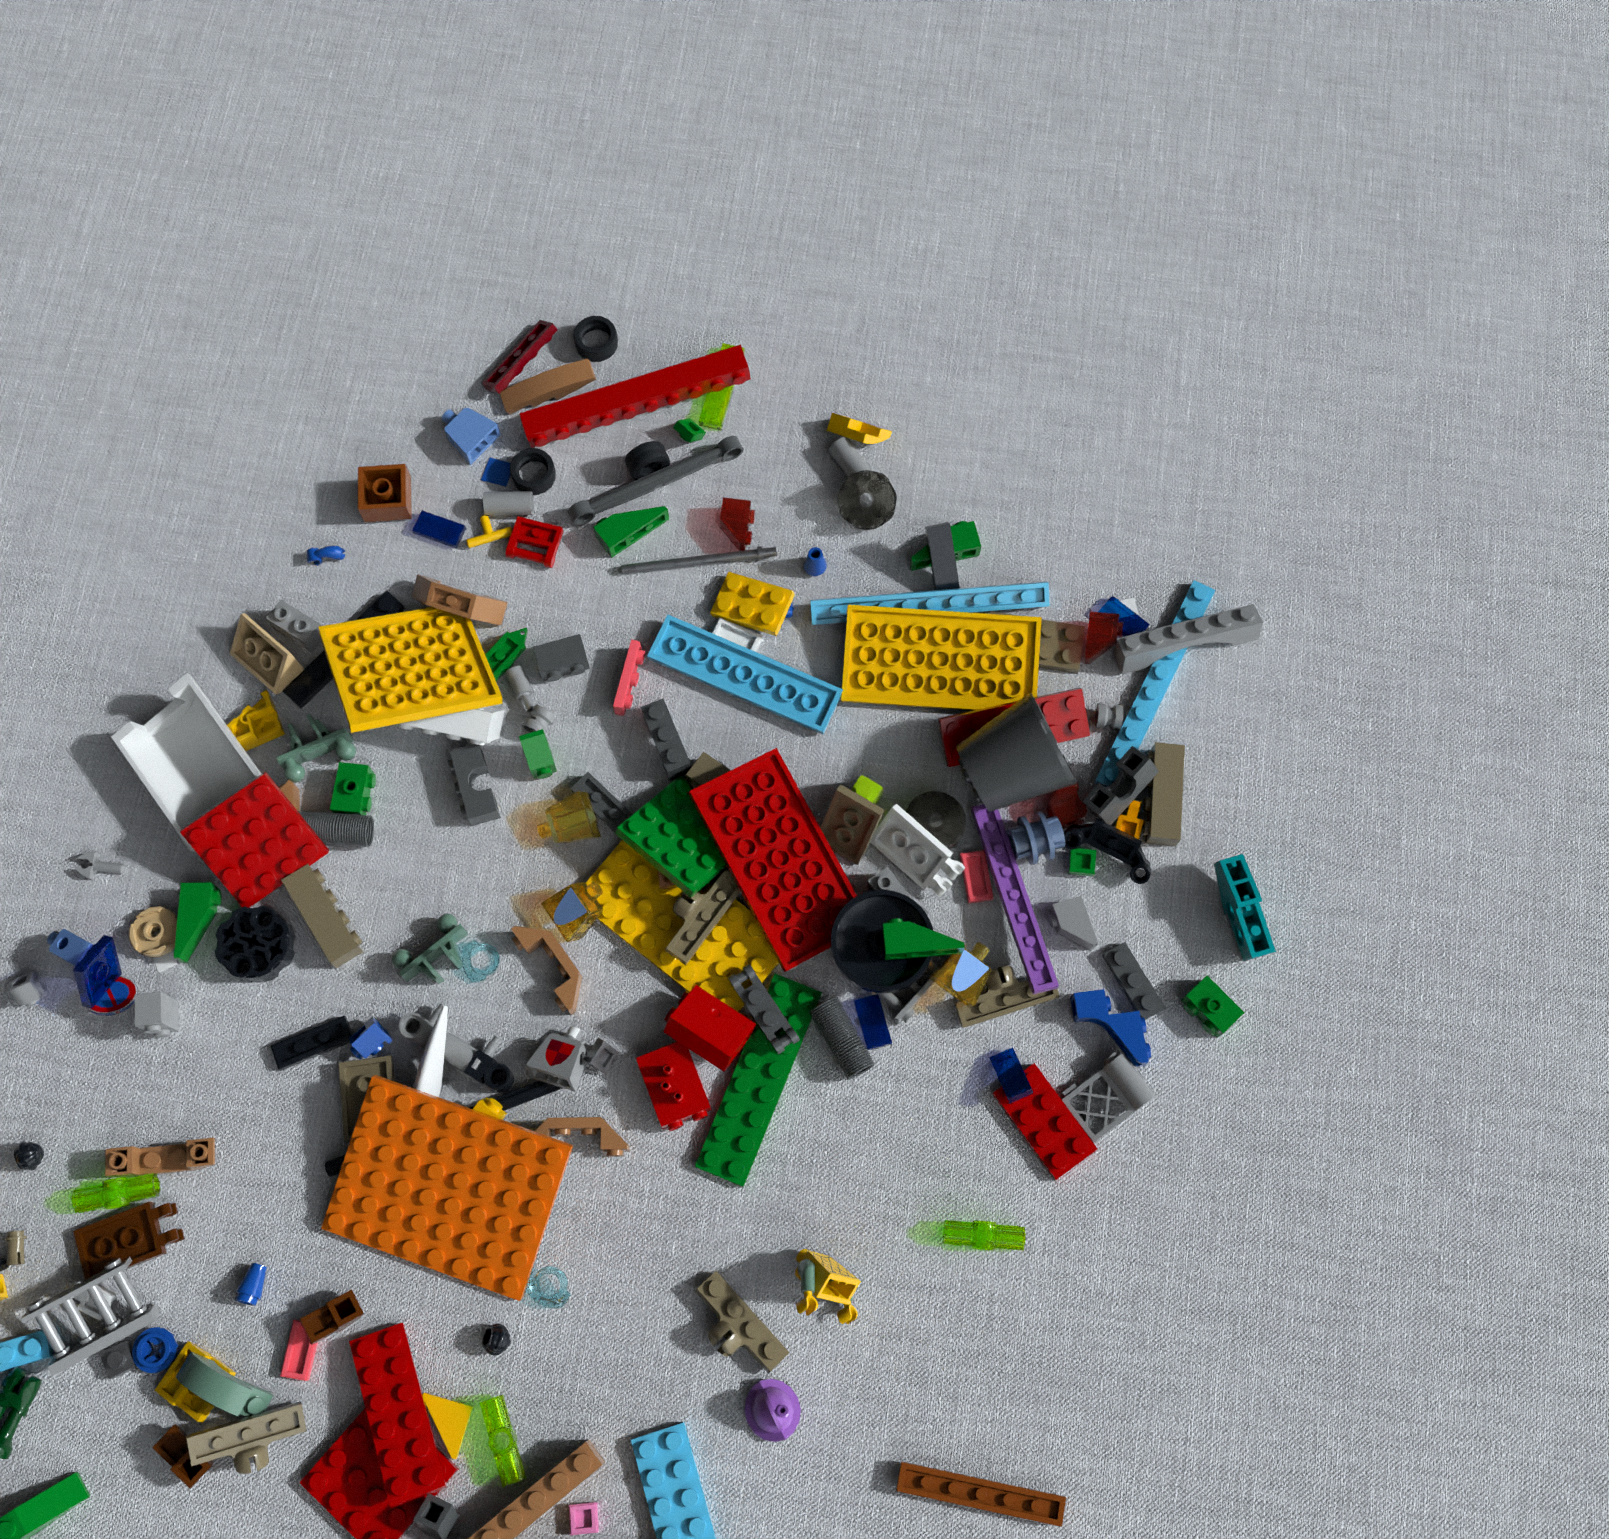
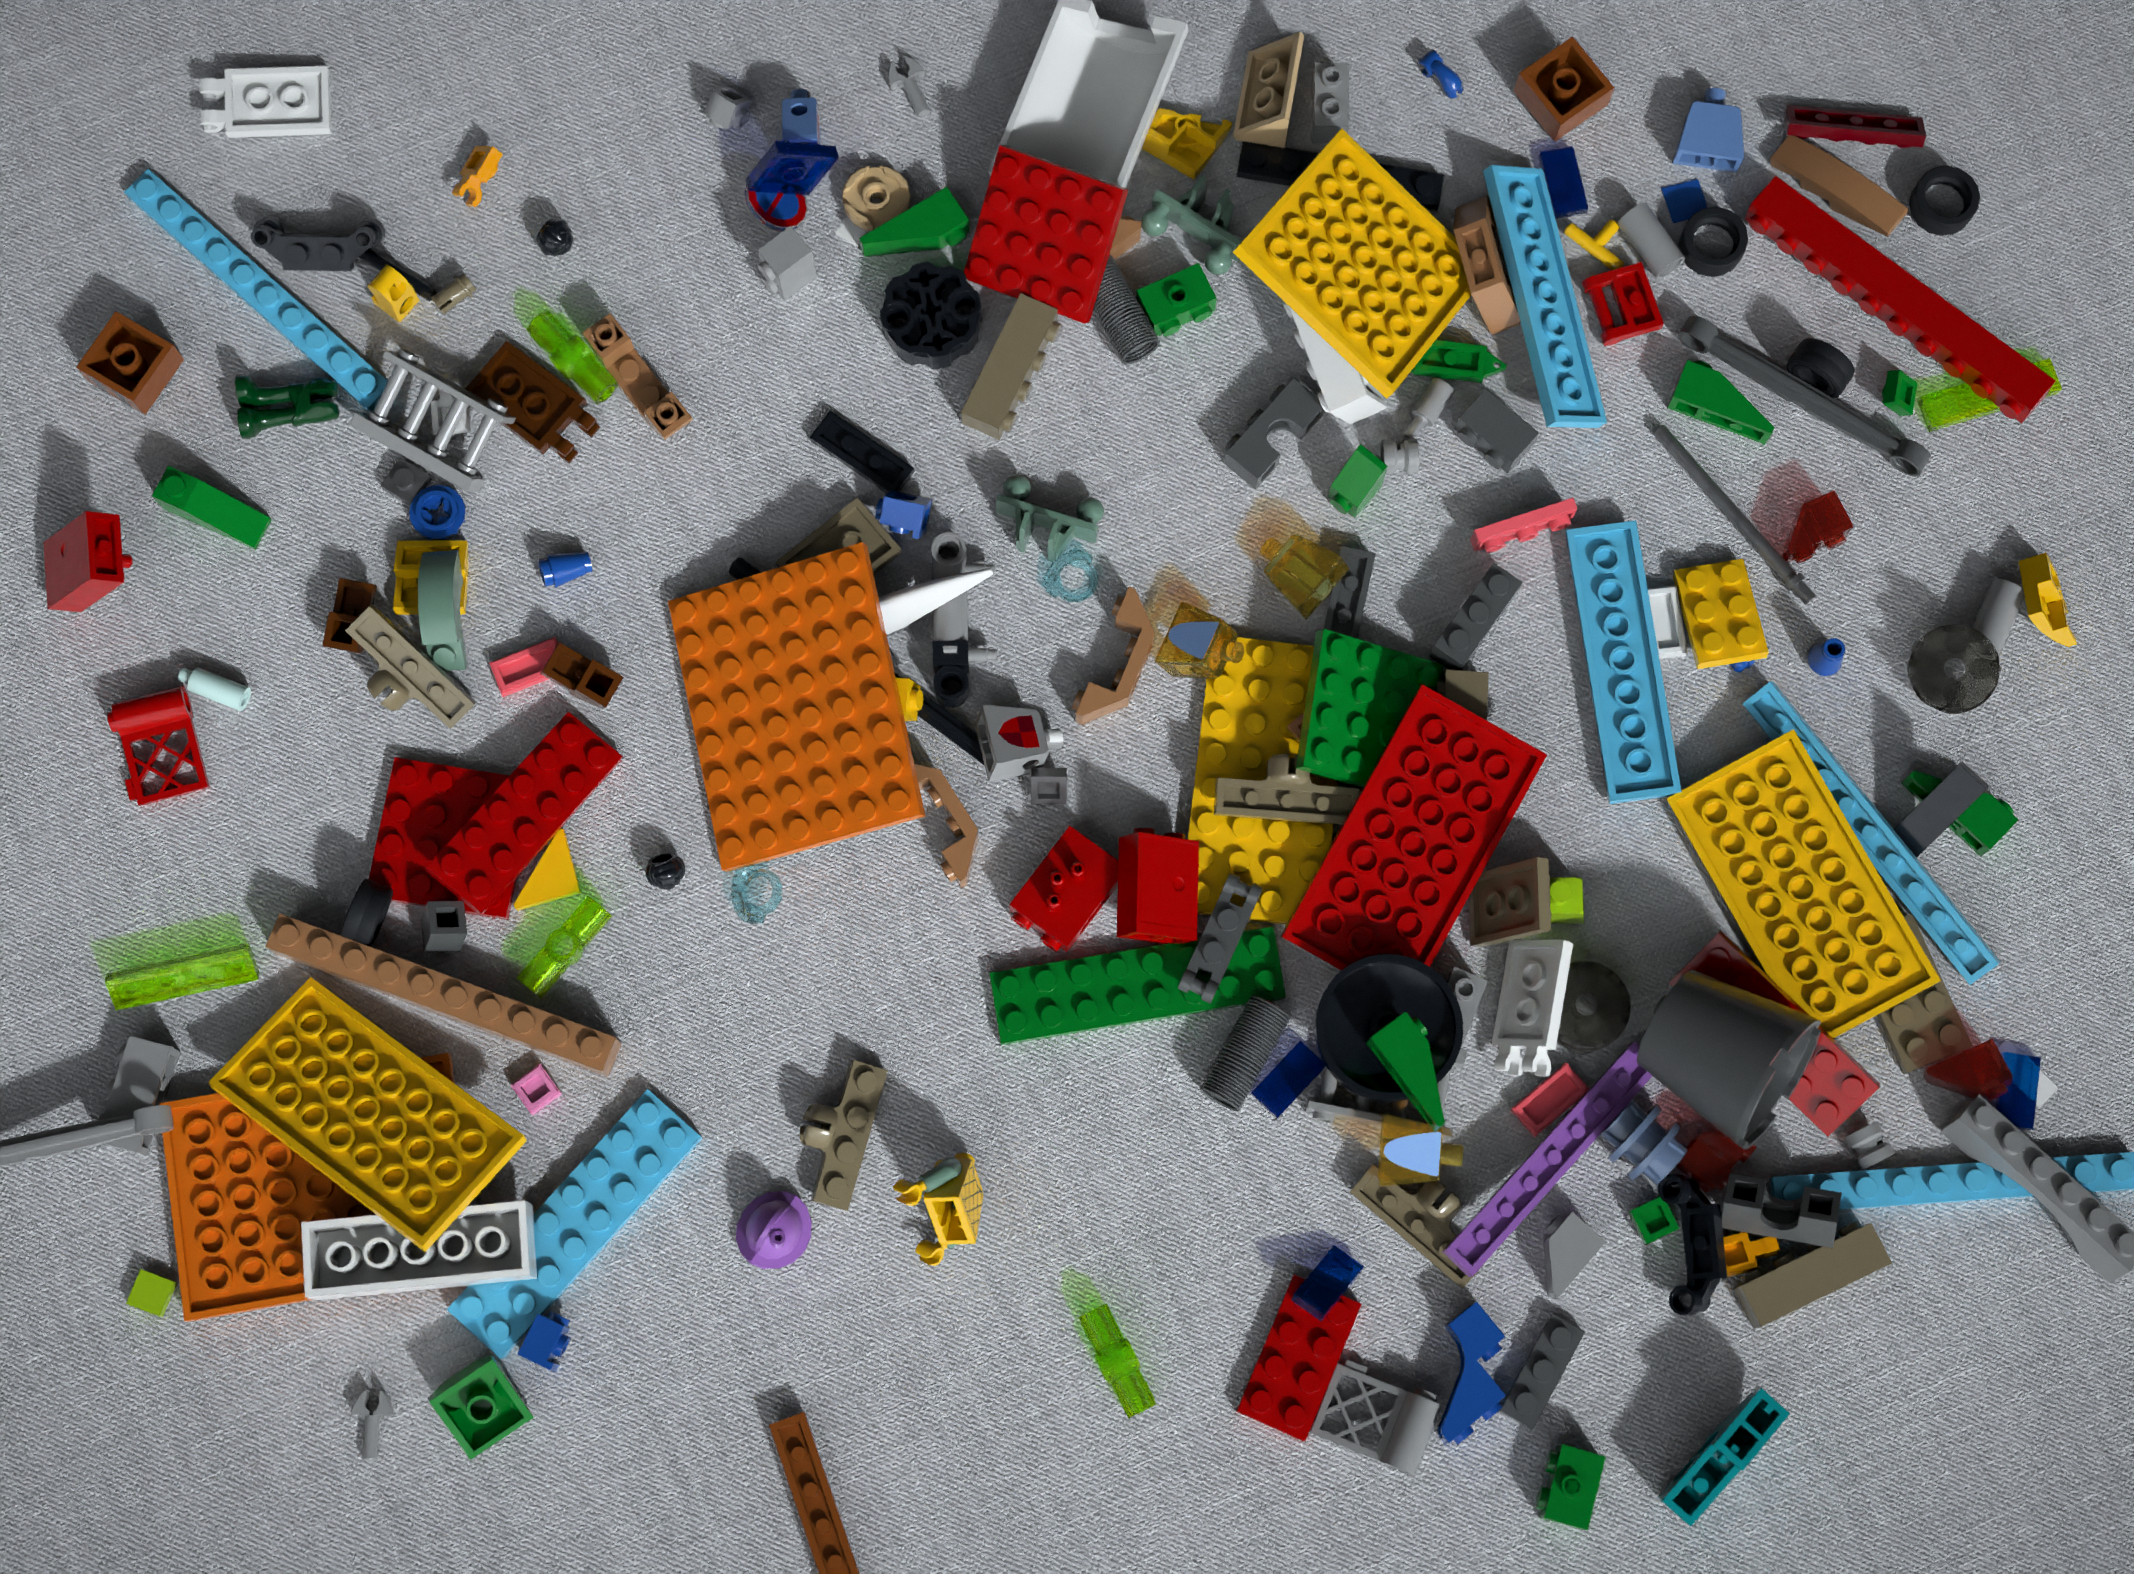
camera: 60 degrees right, 5 degrees up
(500, 580) = (1544, 297): none -> medium azure plate

